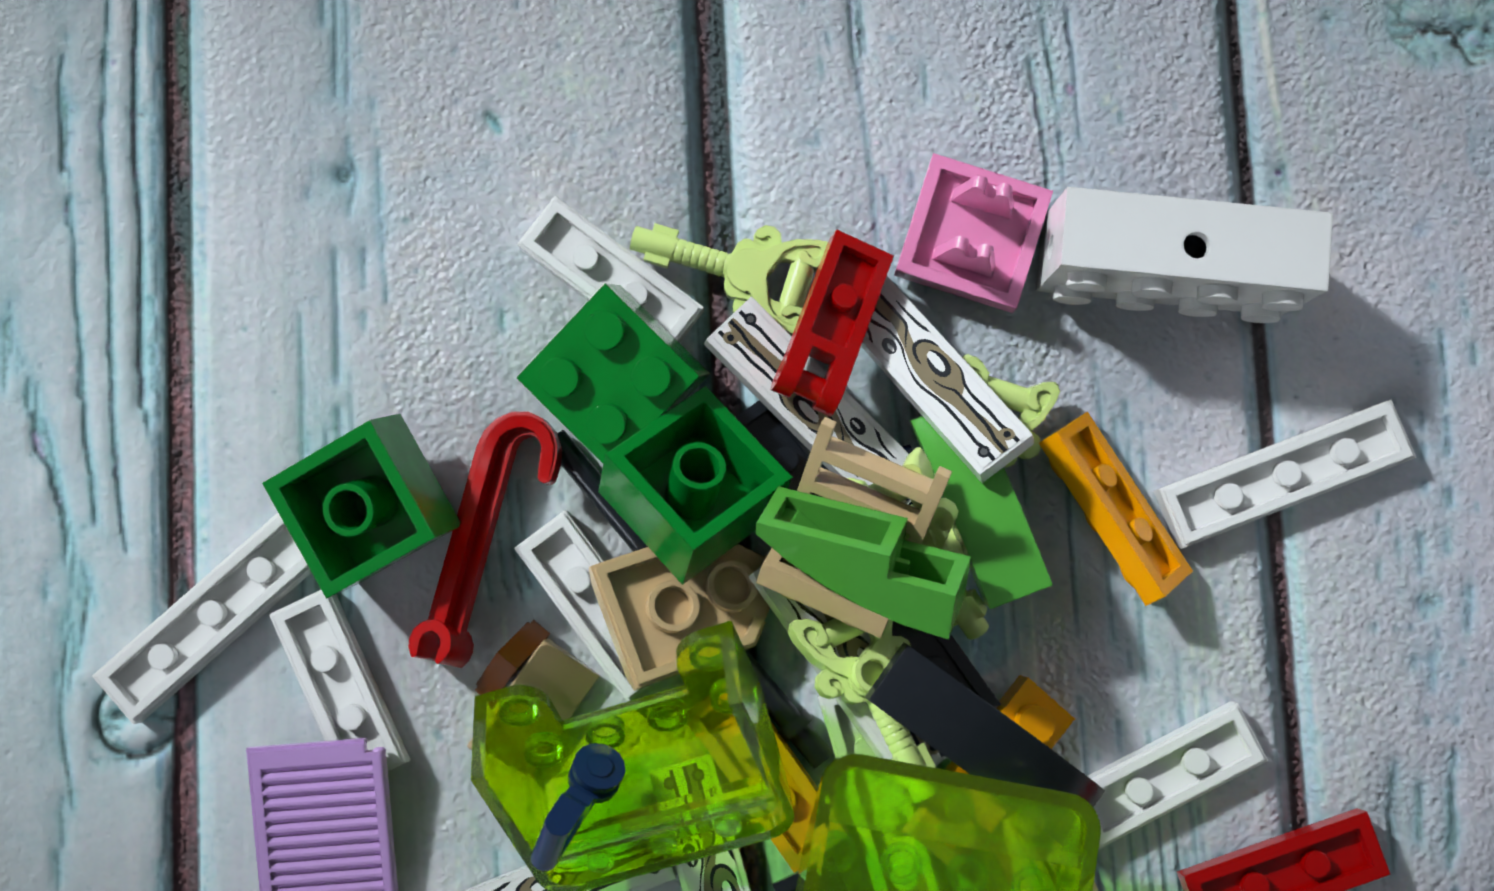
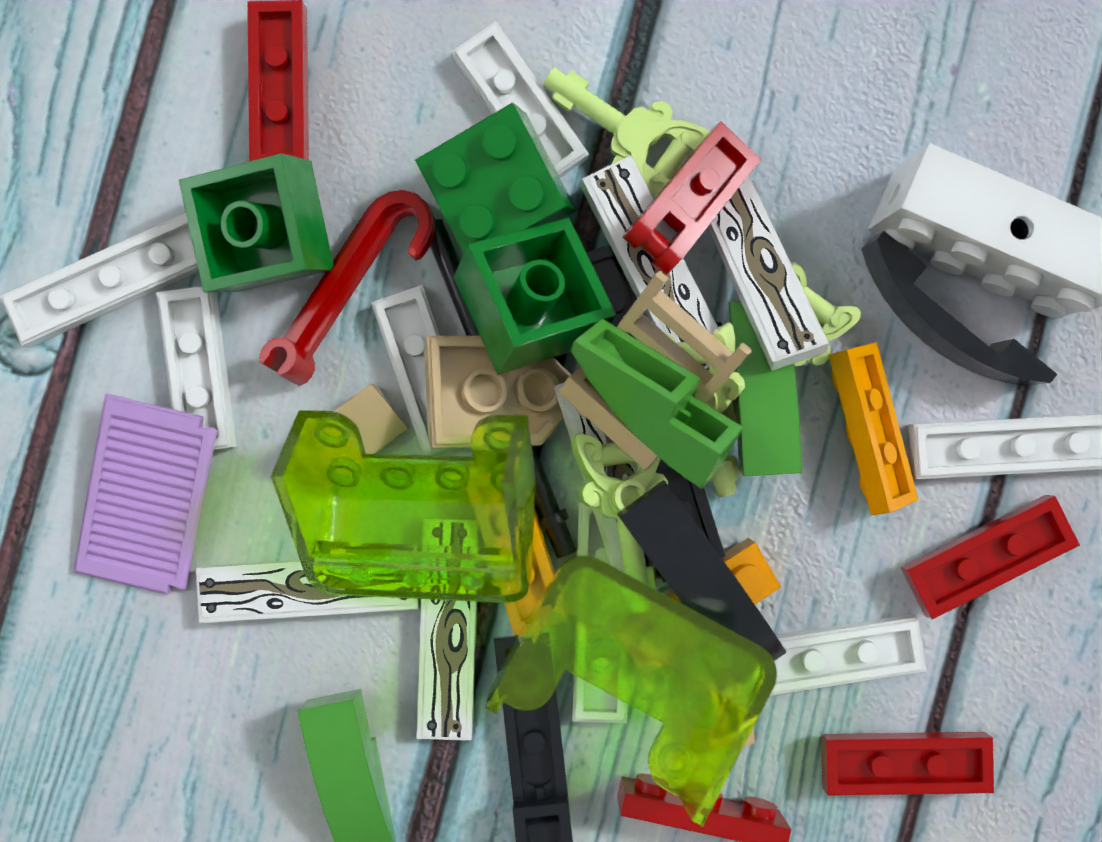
camera: 20 degrees right, 5 degrees up
(335, 338) = (278, 79): none -> red plate
(511, 658) = (341, 390): reddish brown tile -> none
(592, 780) = (374, 509): dark blue piece -> none
(973, 233) = (833, 163): bright pink plate -> none
(1082, 333) = (894, 273): none -> black slope
(1293, 608) = (990, 556): none -> red plate

